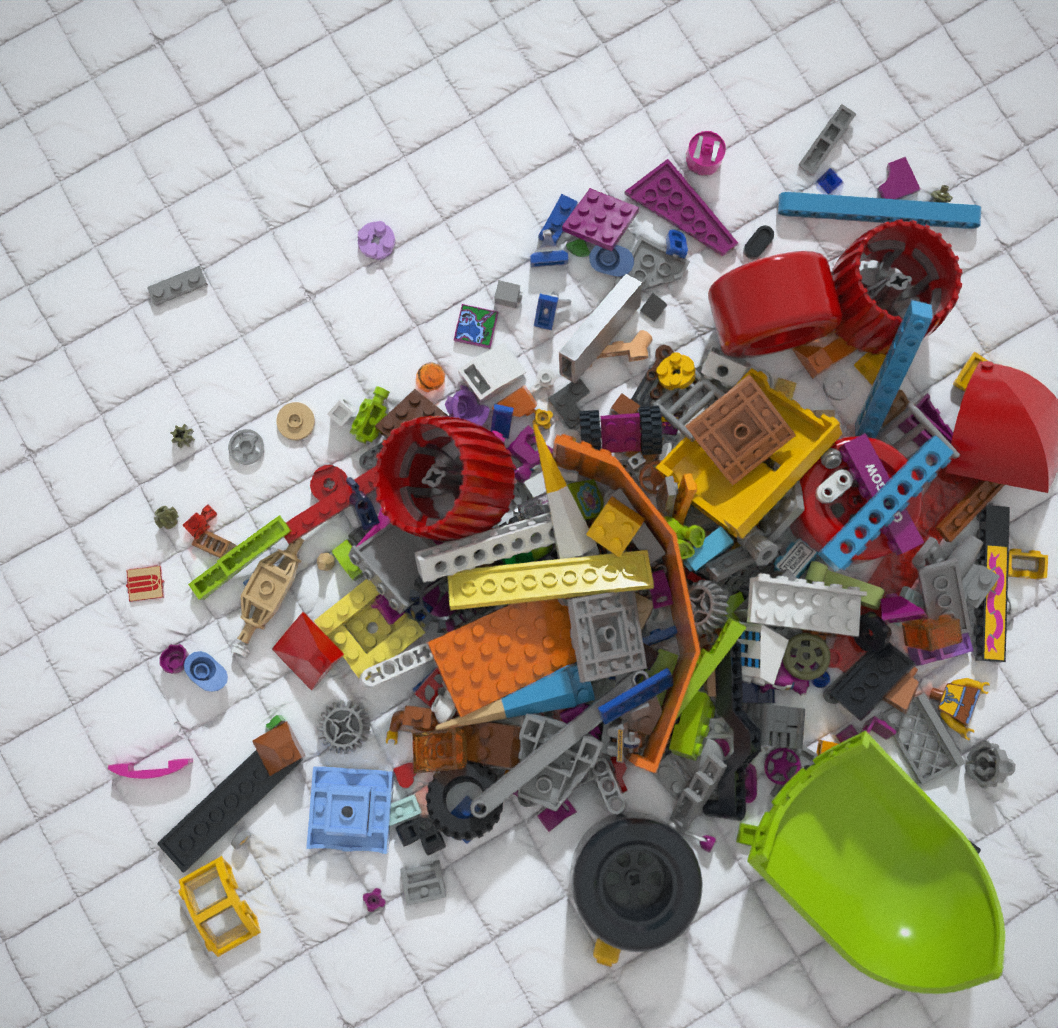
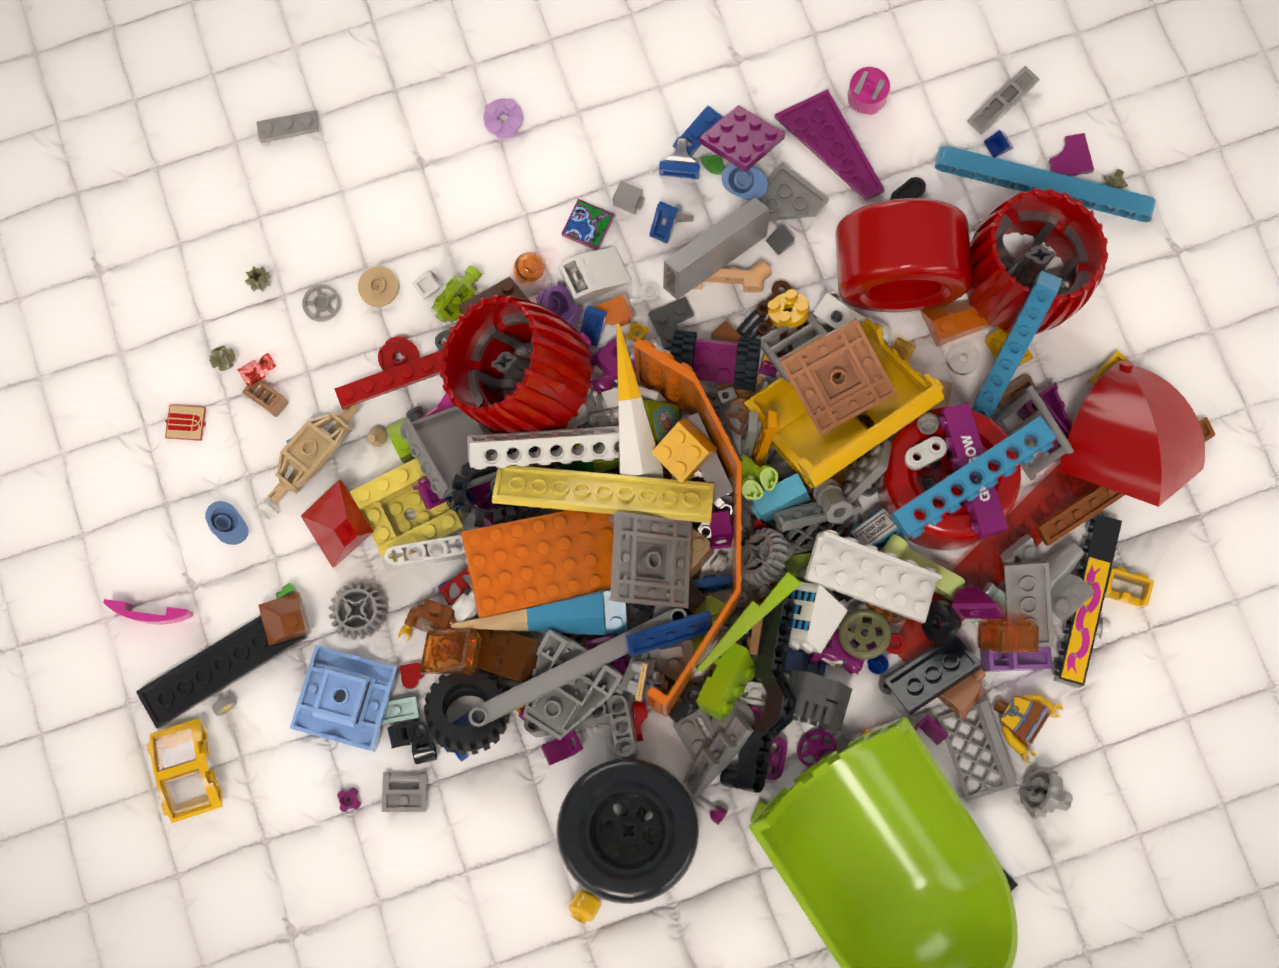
camera: 20 degrees right, 5 degrees down
(173, 659) = (196, 504): magenta hair -> none
(239, 558) = (287, 413): lime slope -> none
(364, 510) = (428, 388): dark blue piece -> none
(676, 244) = (817, 178): blue plate -> none

